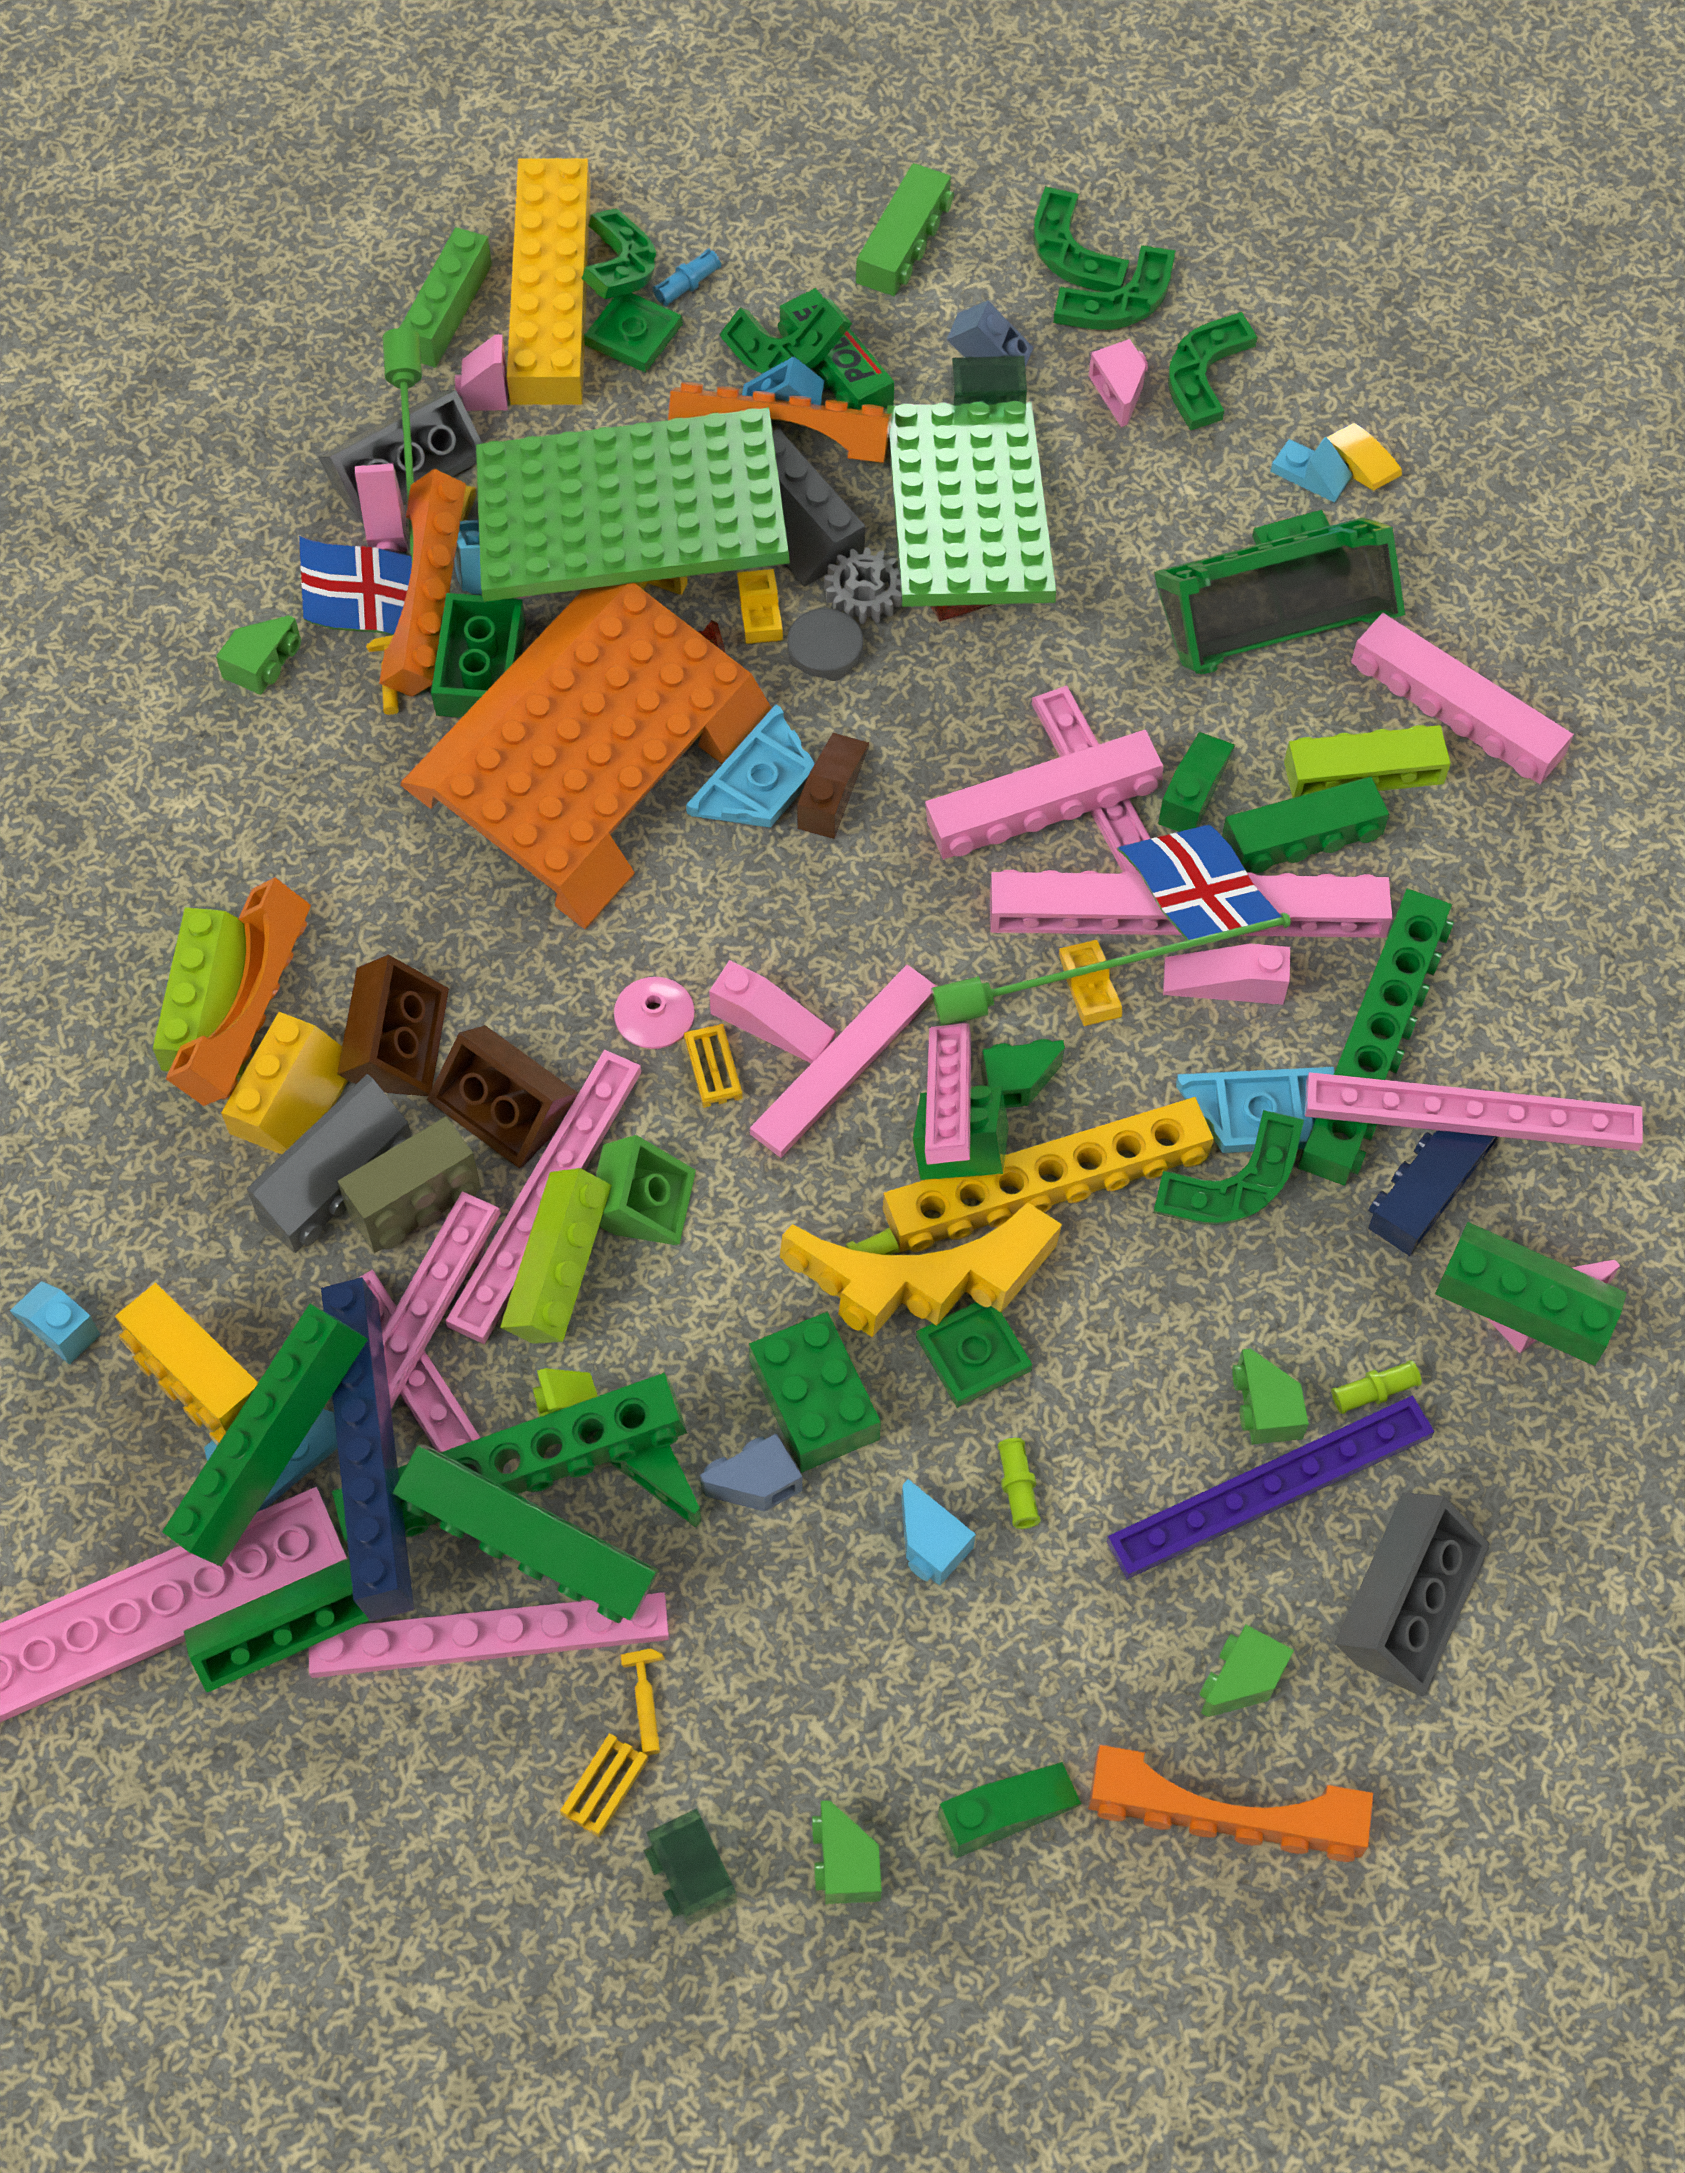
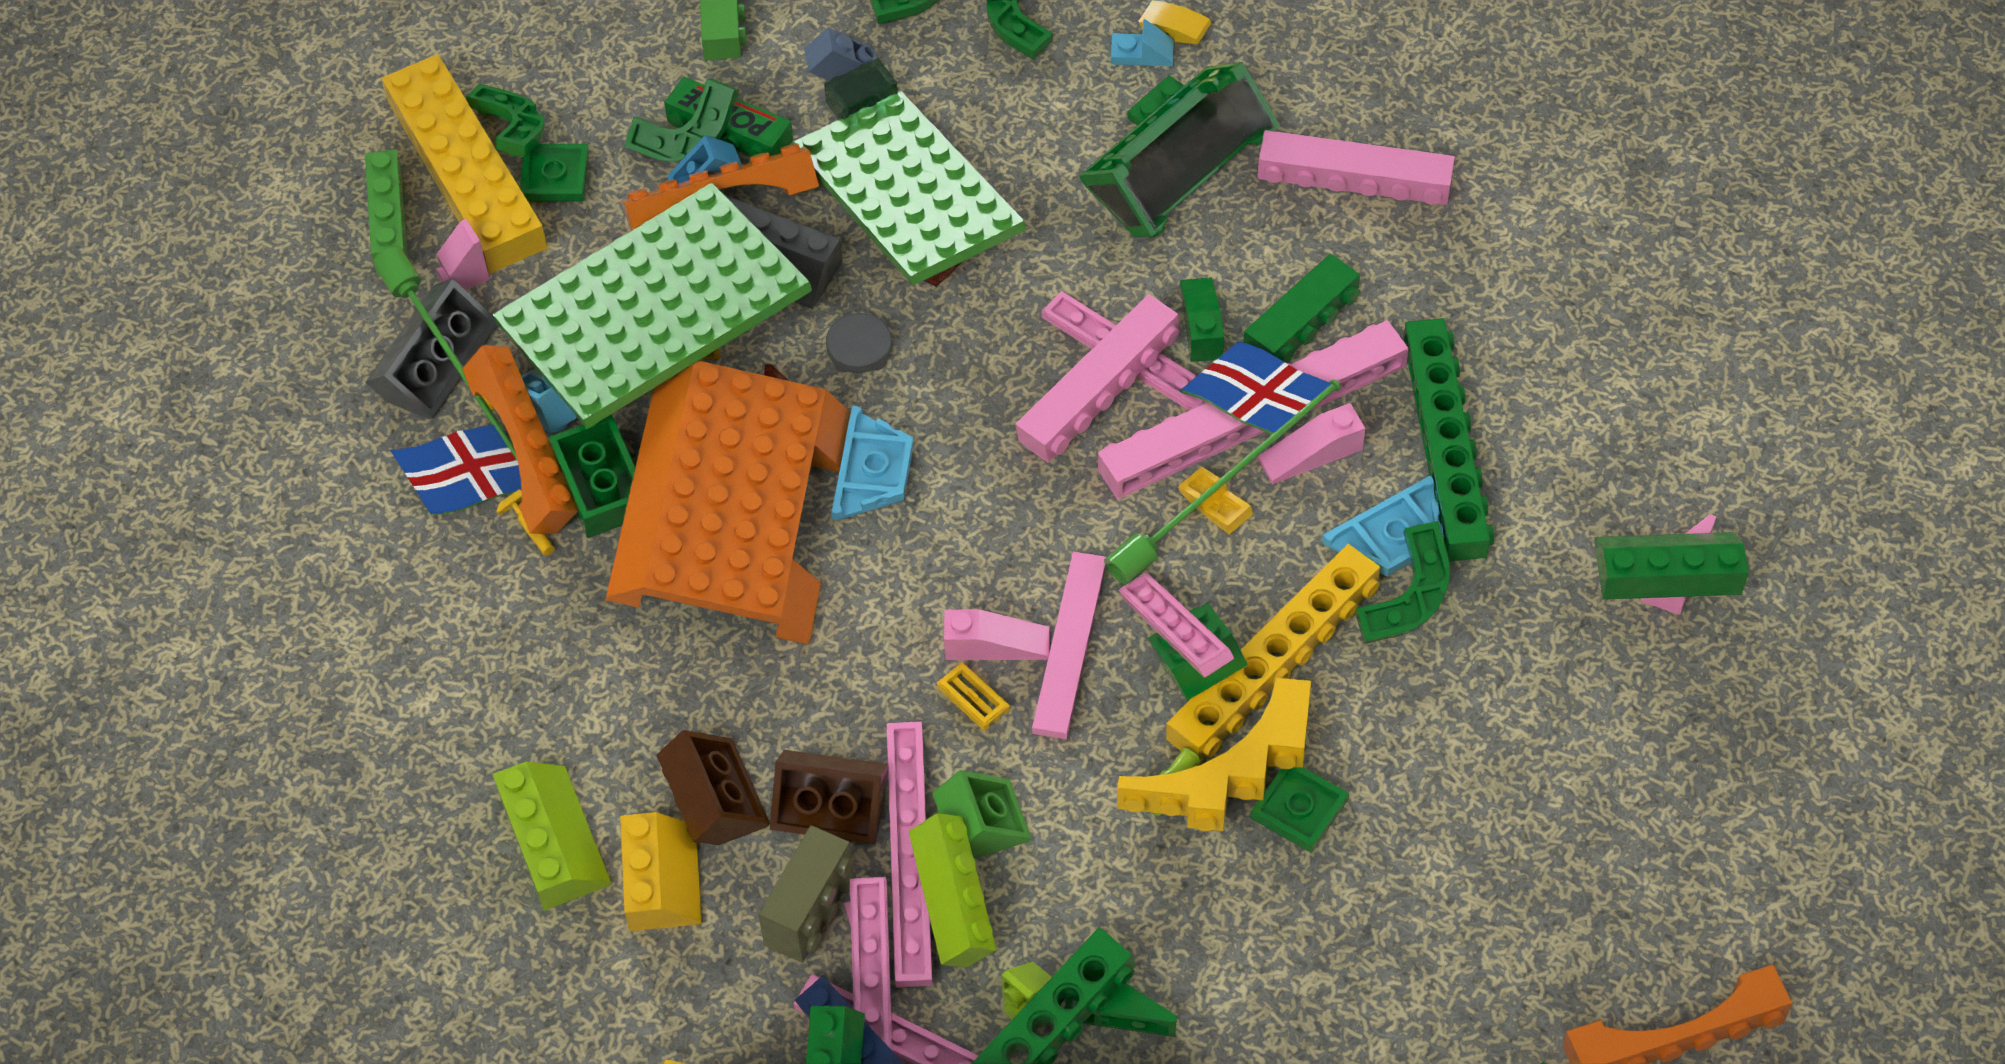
camera: 25 degrees left, 5 degrees down
(258, 651) = (413, 556): bright green slope -> none
(272, 923) = (568, 755): orange arch -> none
(302, 1185) = (731, 912): dark grey slope -> none
(382, 507) = (452, 396): bright pink slope -> none
(654, 1027) = (902, 692): bright pink dish -> none
(687, 277) = (570, 113): dark azure pin -> none
(755, 1477) = (1201, 975): sand blue slope -> none
(759, 606) = (790, 340): yellow slope -> none
(814, 1391) = (1204, 892): green brick -> none
(830, 785) = (932, 447): reddish brown slope -> none
(864, 585) = (863, 284): light grey gear -> none
(932, 1535) = (1351, 950): medium azure slope -> none
(1018, 1483) = (1390, 882): lime pin -> none
(1021, 1068) = (1205, 584): green slope -> none
(1119, 377) = (956, 42): bright pink slope -> none
(1249, 1674) = (1635, 930): bright green slope -> none
(1269, 1487) = (1567, 795): dark purple plate -> none
(1272, 1400) = (1532, 732): bright green slope -> none
(1376, 1386) = (1598, 686): lime pin -> none
(1389, 756) = (1336, 231): lime brick -> none
(1413, 1592) = (1711, 815): dark grey slope -> none
(1426, 1186) = (1548, 518): dark blue brick -> none
(1474, 1111) = (1551, 457): bright pink plate -> none

